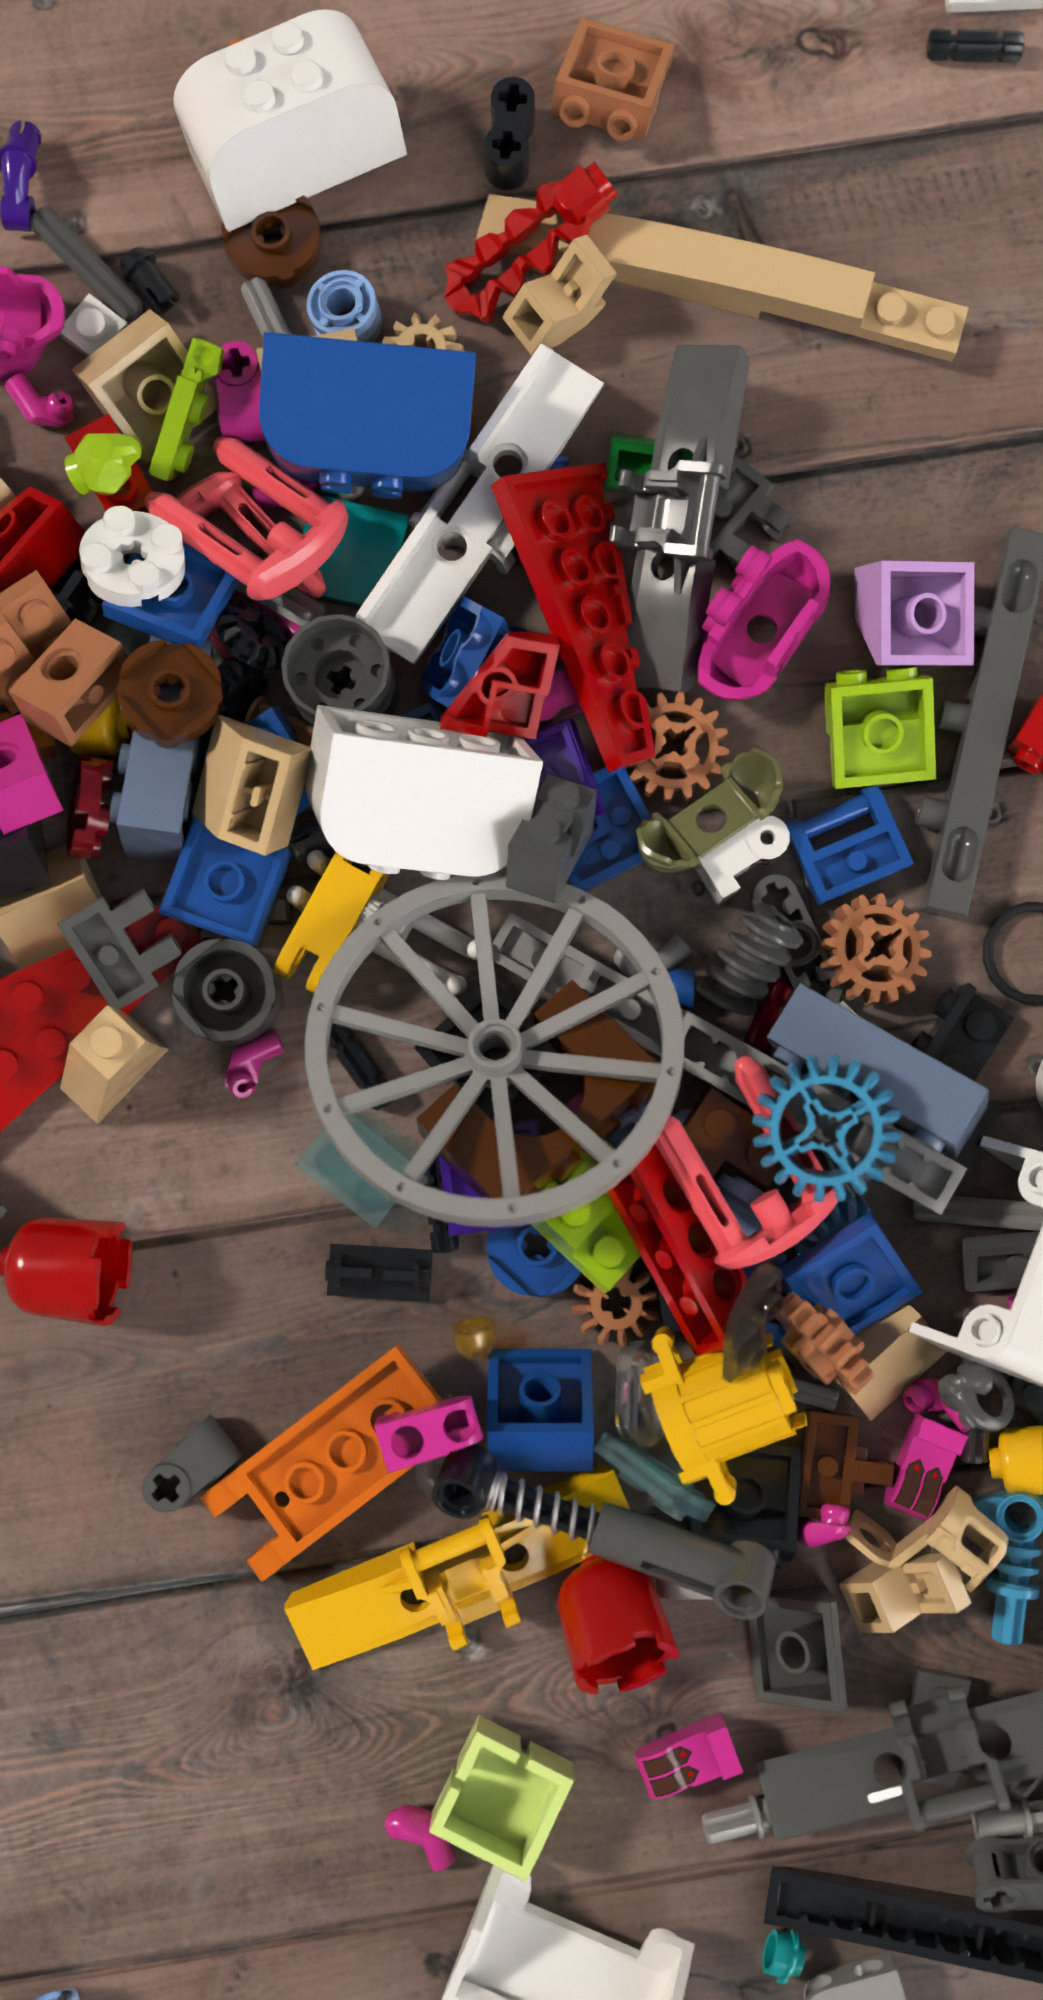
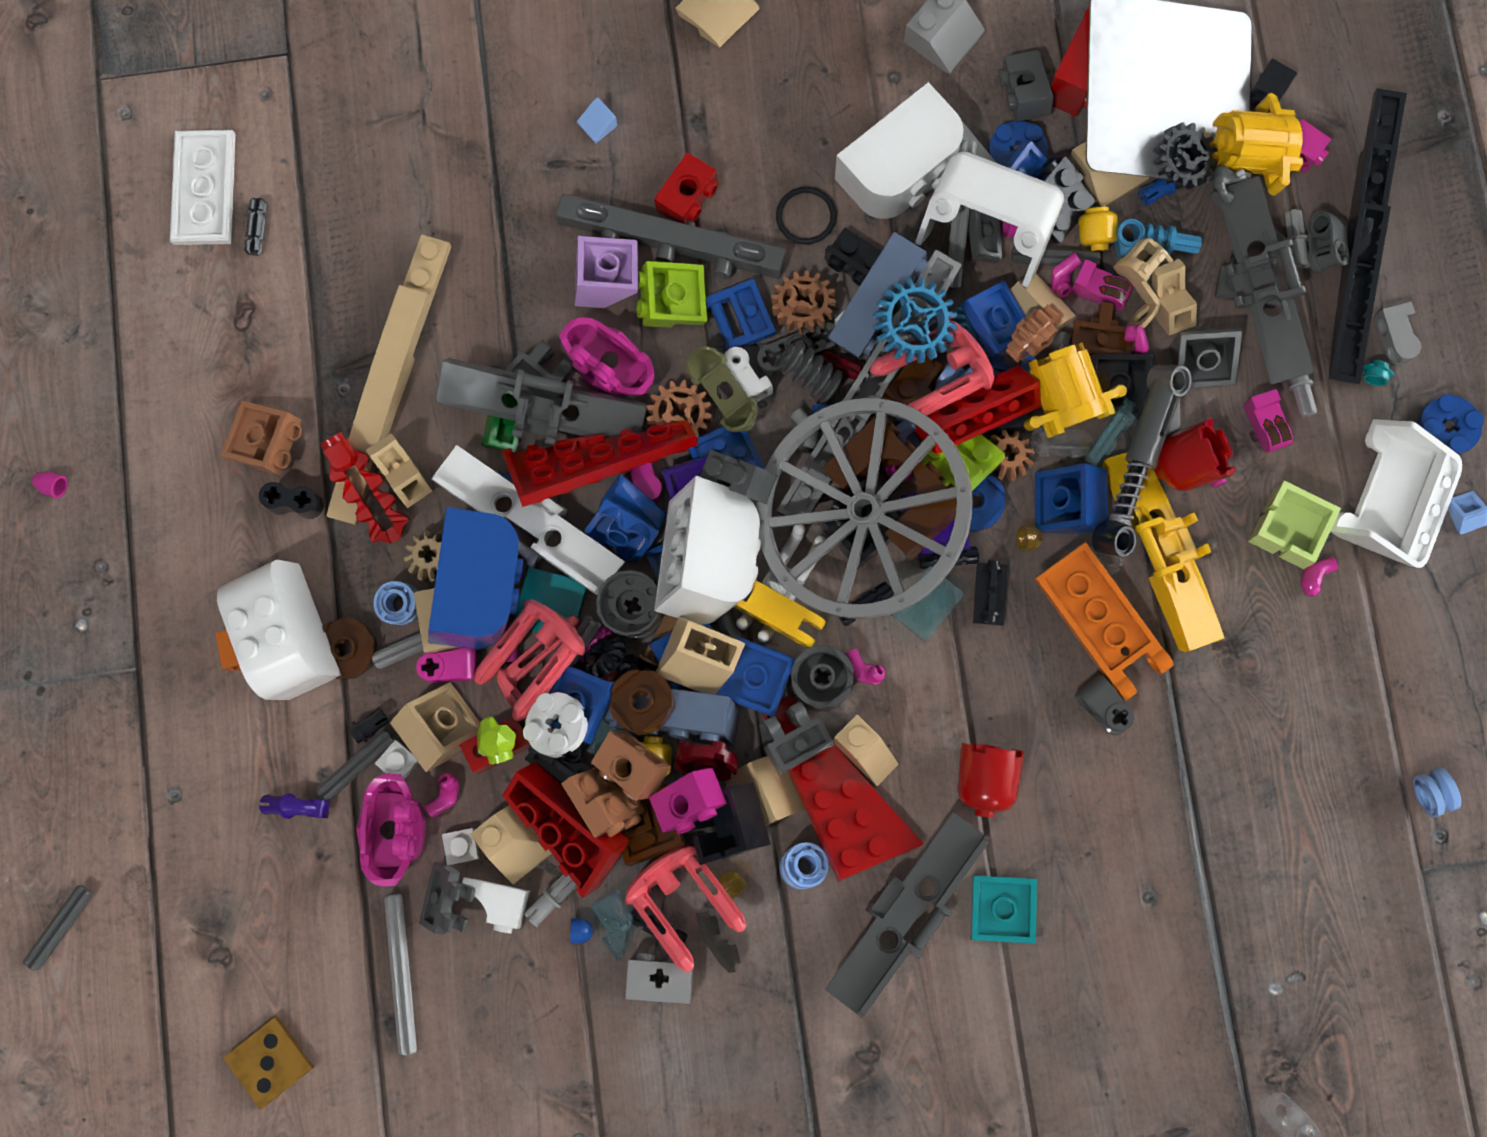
camera: 85 degrees left, 5 degrees down
(185, 408) = (456, 696): lime hinge -> none
(427, 1432) = (1087, 557): dark pink leg -> none
(507, 688) = (647, 499): red slope -> none
(746, 1326) = (1031, 370): clear smoke slope -> none
(960, 1392) = (1060, 261): dark grey piece -> none

